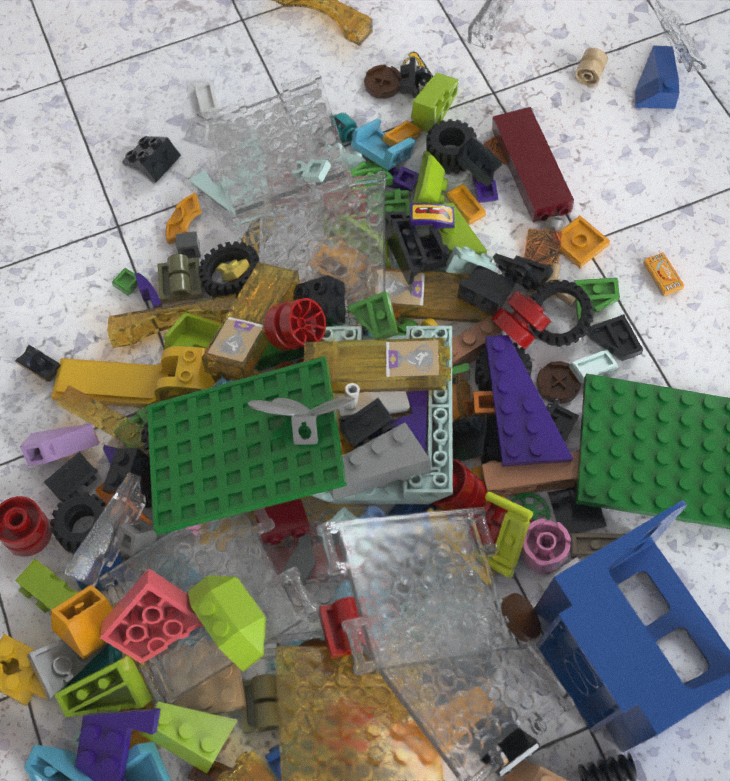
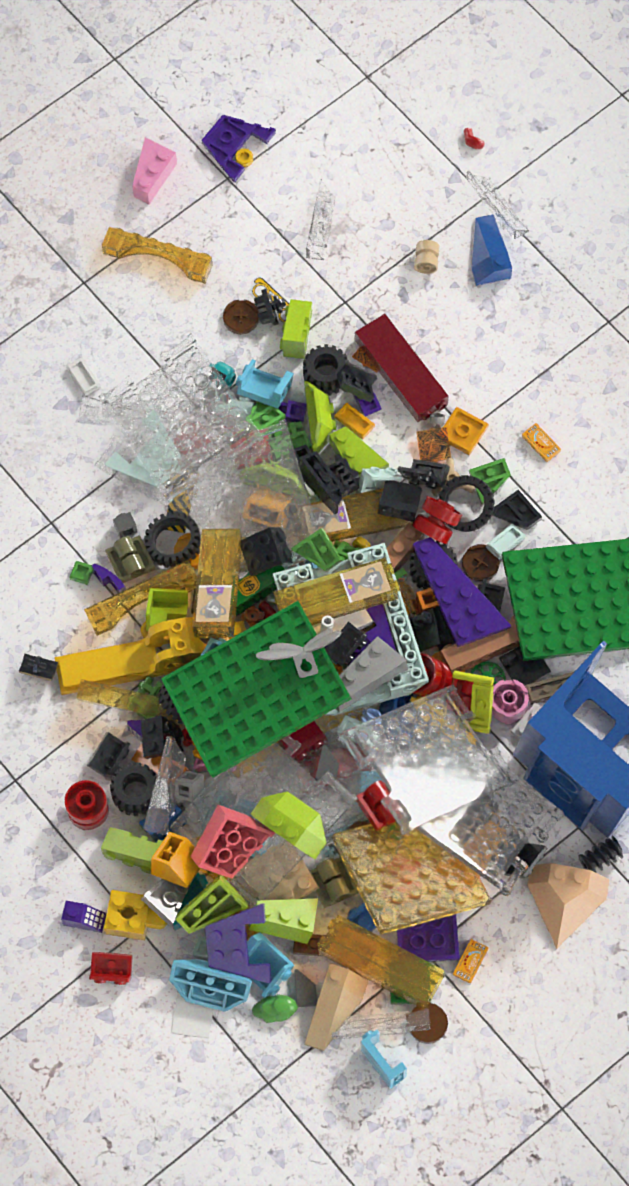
camera: 20 degrees left, 5 degrees up
(58, 443) = (88, 730): lavender slope -> none
(153, 155) = (56, 447): black bracket -> none
(182, 217) = (108, 501): light orange tile -> none
(233, 269) = (177, 538): light yellow plate -> none
(294, 323) = (257, 577): red wheel -> none
(313, 171) = (226, 437): light aqua plate -> none
(401, 133) = (277, 368): light orange tile -> none
(432, 214) = (334, 444): slope -> none
(522, 617) = (508, 760): reddish brown tile -> none

